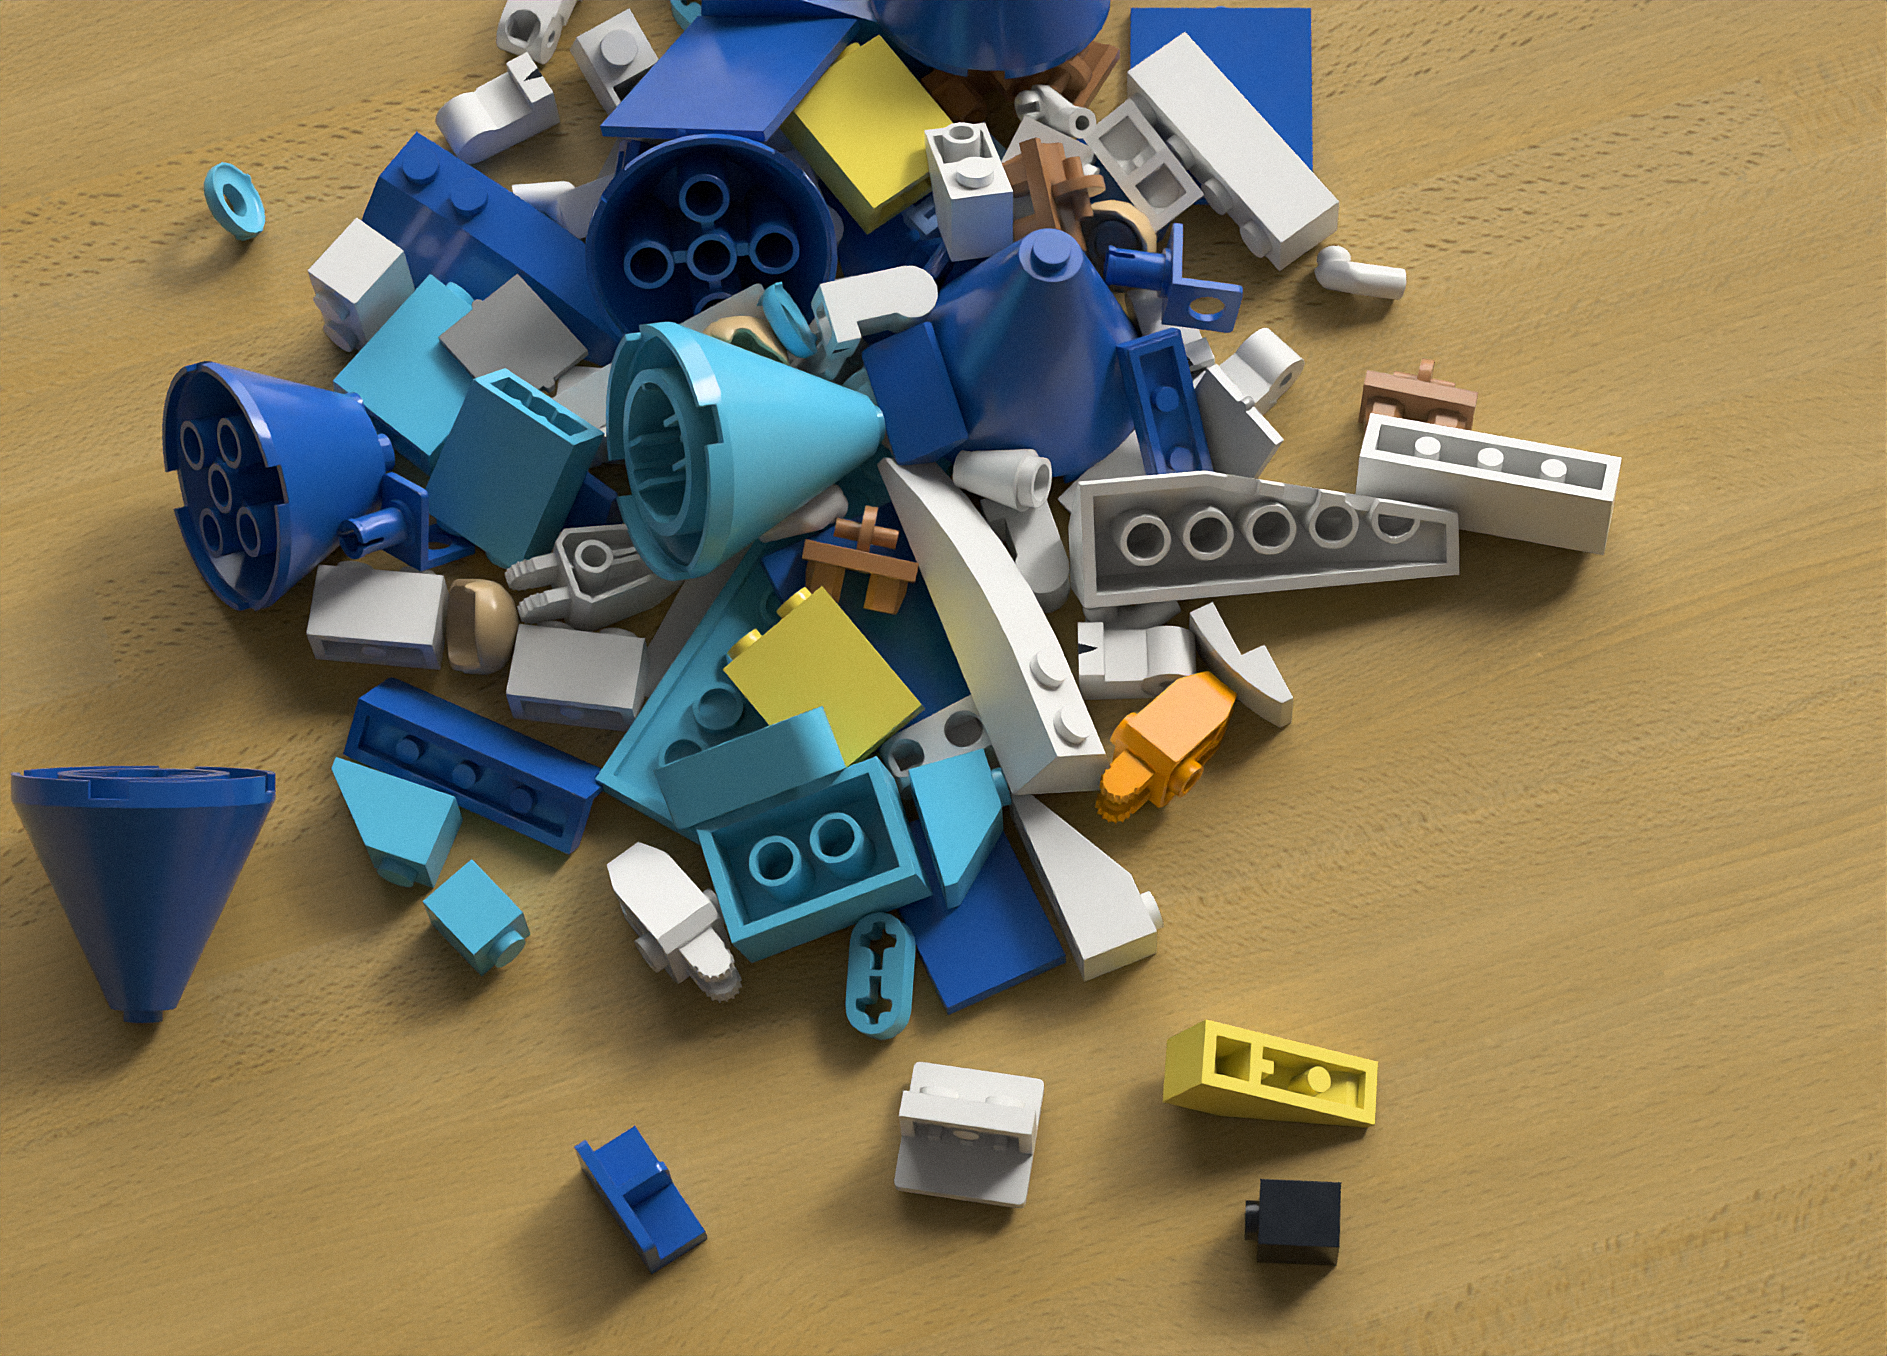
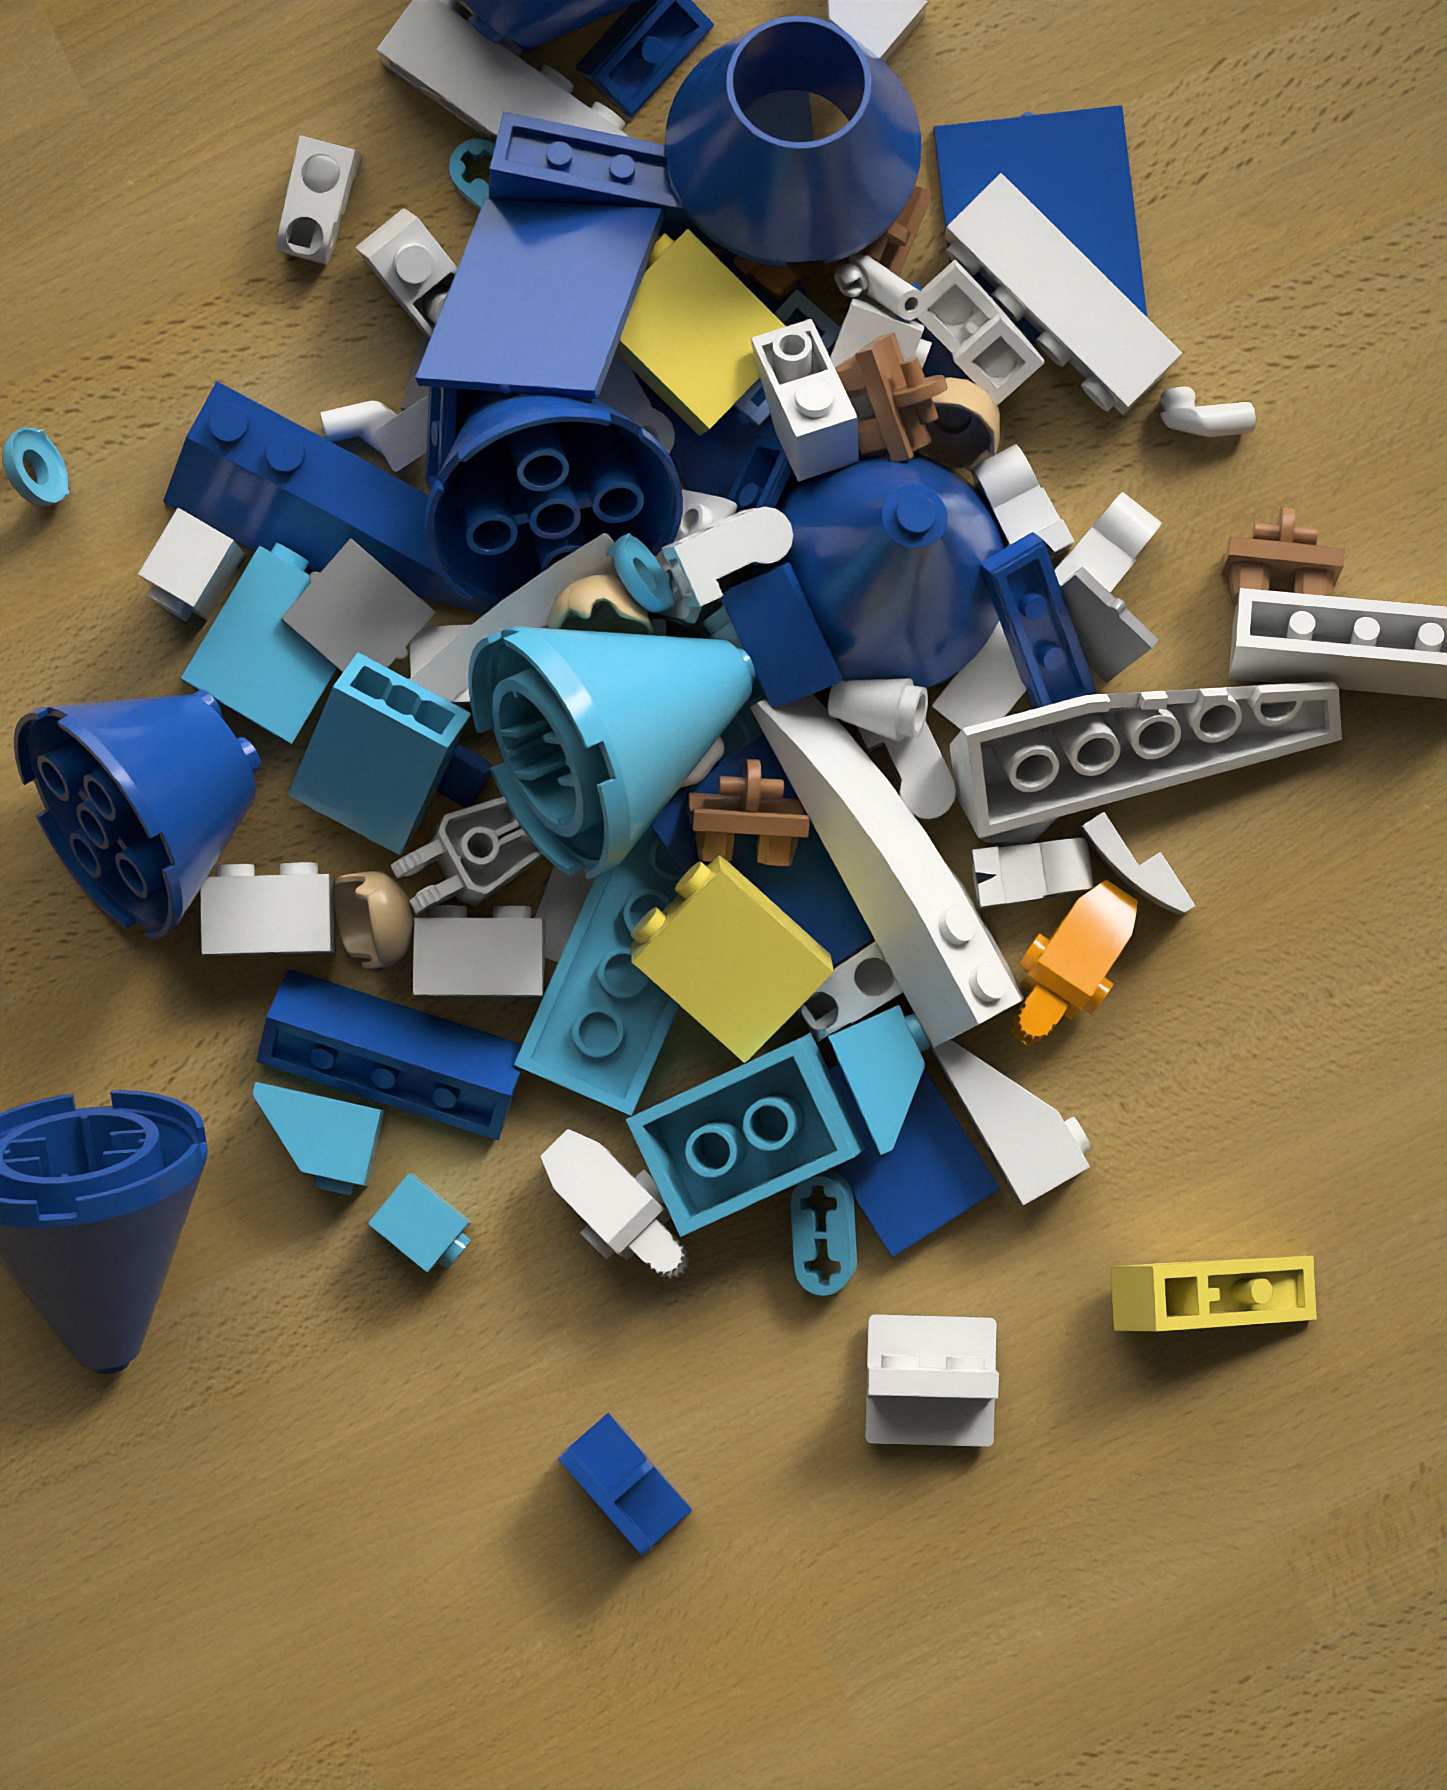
camera: 10 degrees left, 20 degrees up
(402, 529) = (279, 830): blue bracket -> none
(499, 112) = (291, 332): white leg -> none
(749, 768) = (673, 1059): medium azure beam -> none
(1164, 275) = (1016, 463): blue bracket -> none
(1295, 1222) = (1254, 1434): black brick -> none

